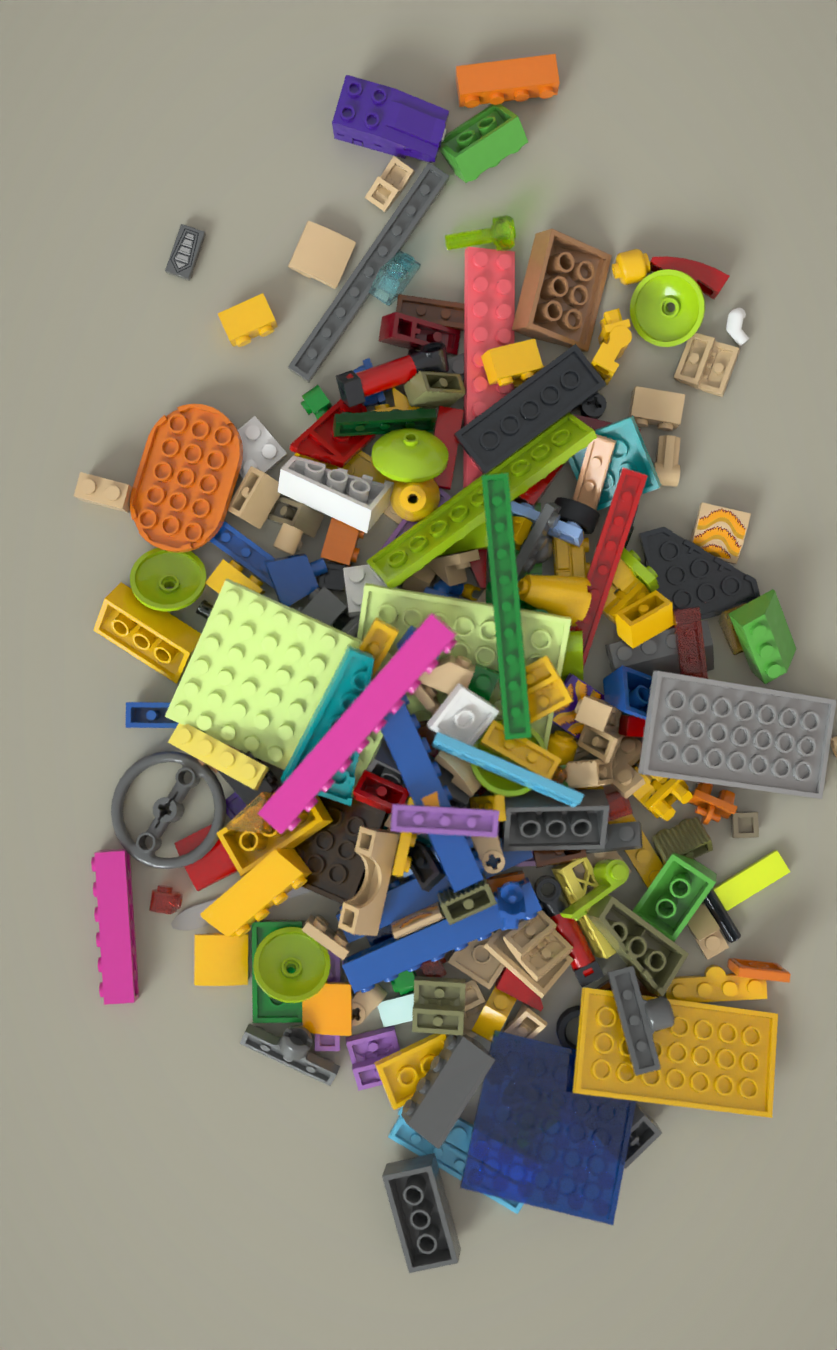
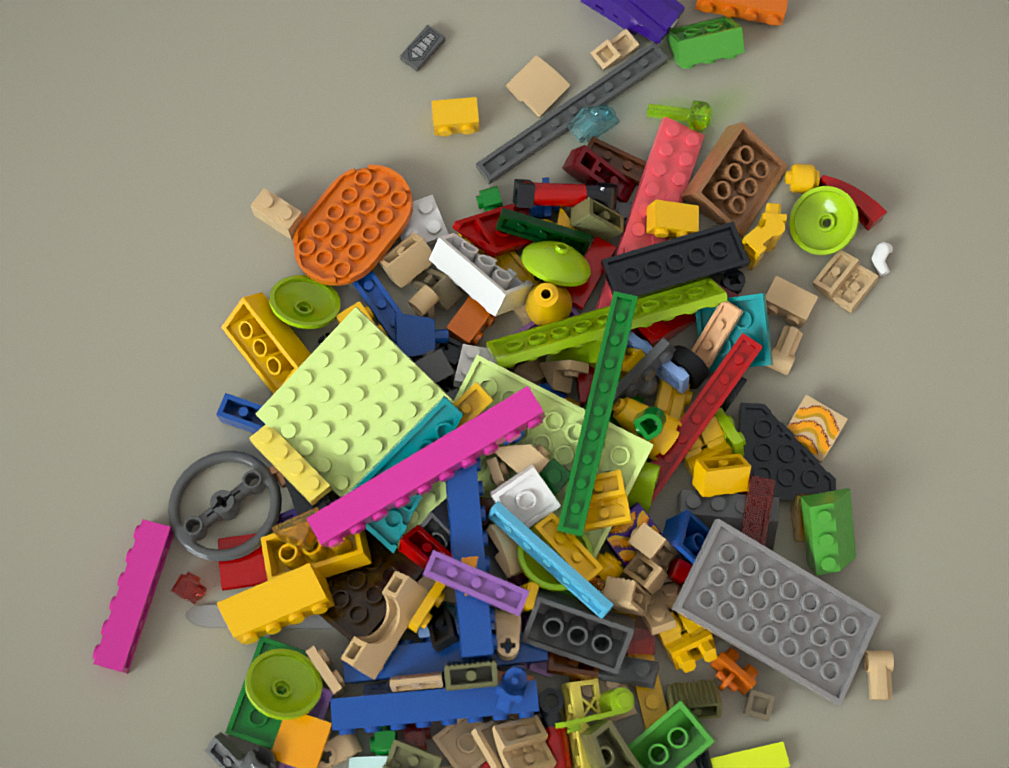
camera: 15 degrees right, 15 degrees down
(220, 960) = (218, 662): yellow slope -> none
(560, 597) = (650, 422): none -> green plate

